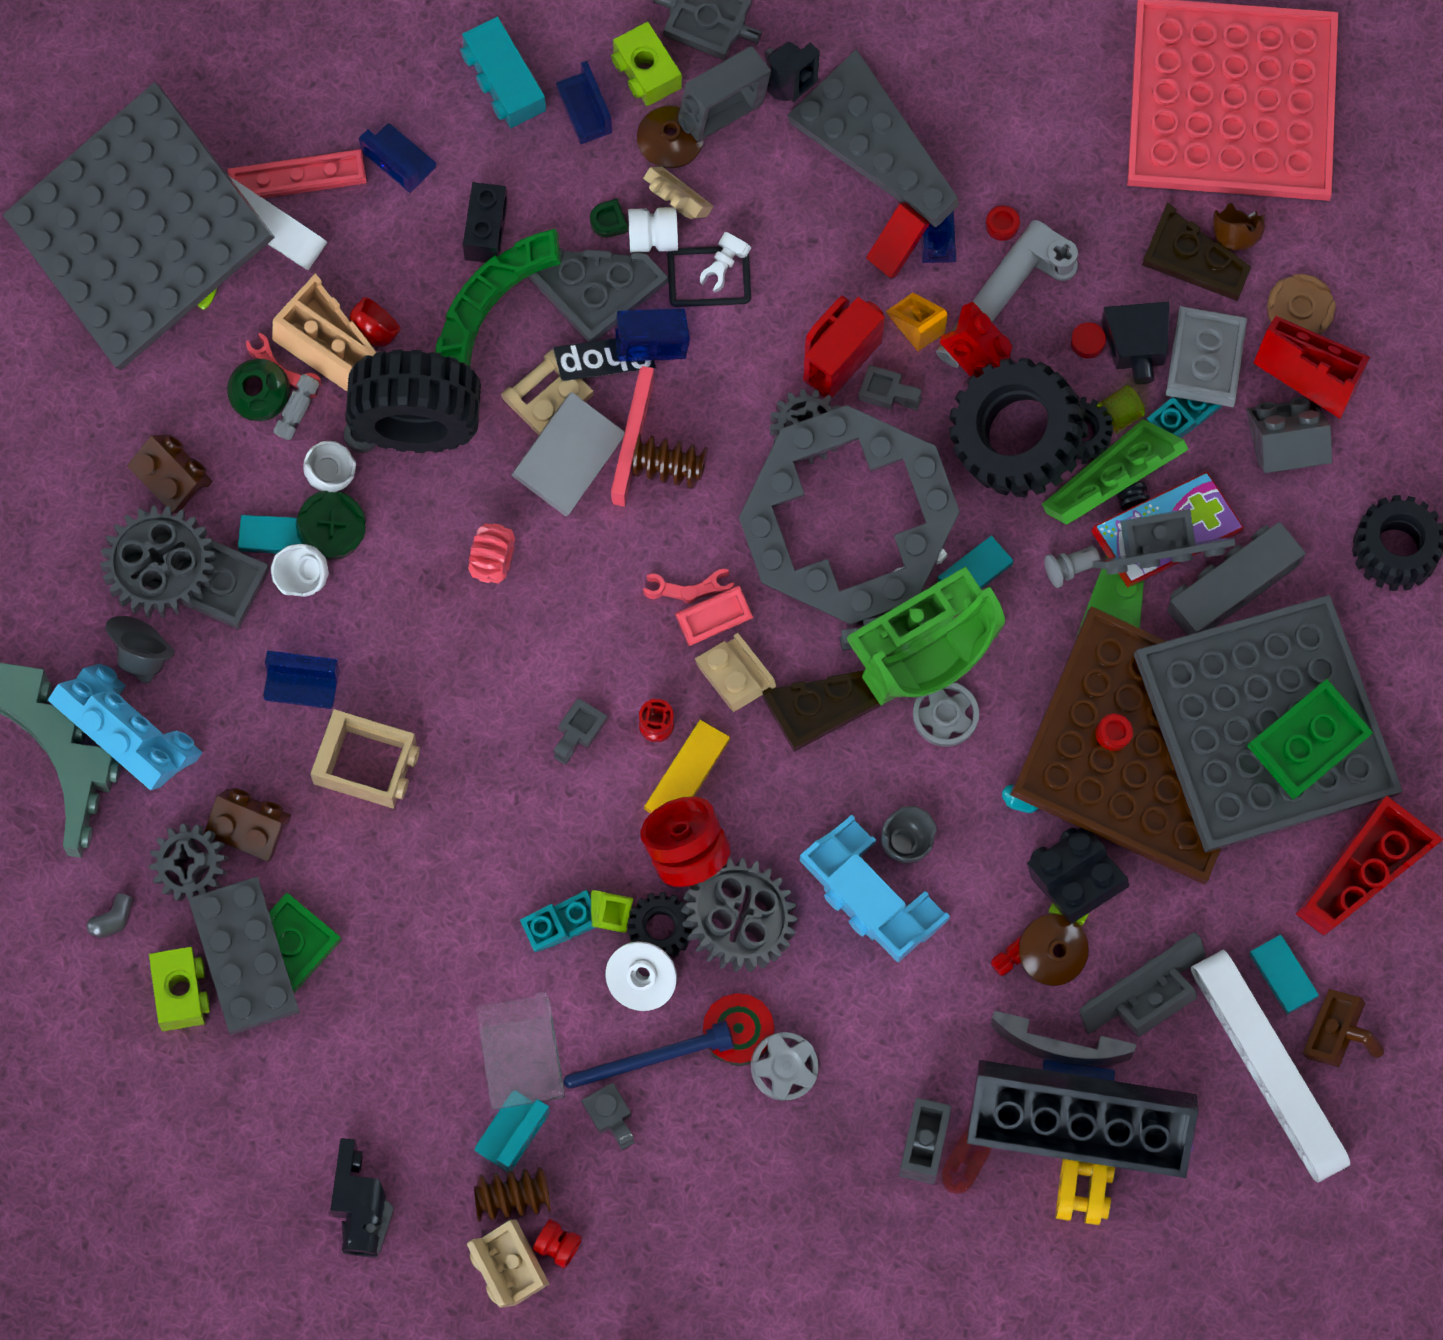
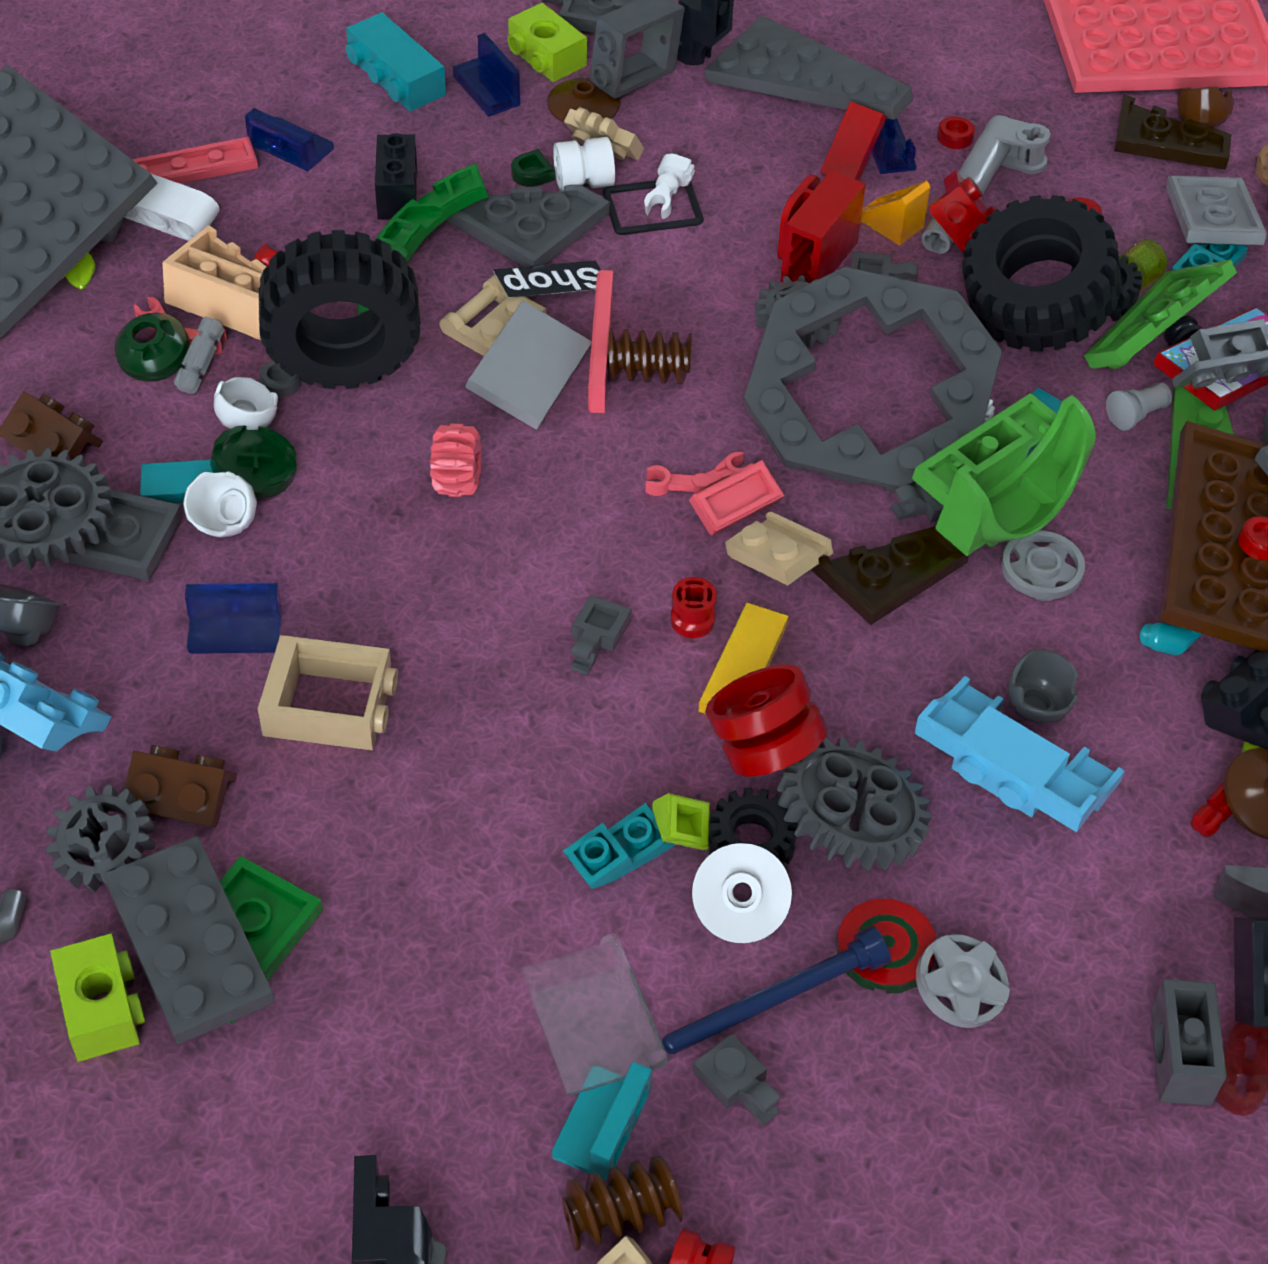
camera: 10 degrees left, 20 degrees down
(652, 334) = (603, 247): clear blue hinge -> none
(1137, 337) = (1135, 200): black torso -> none

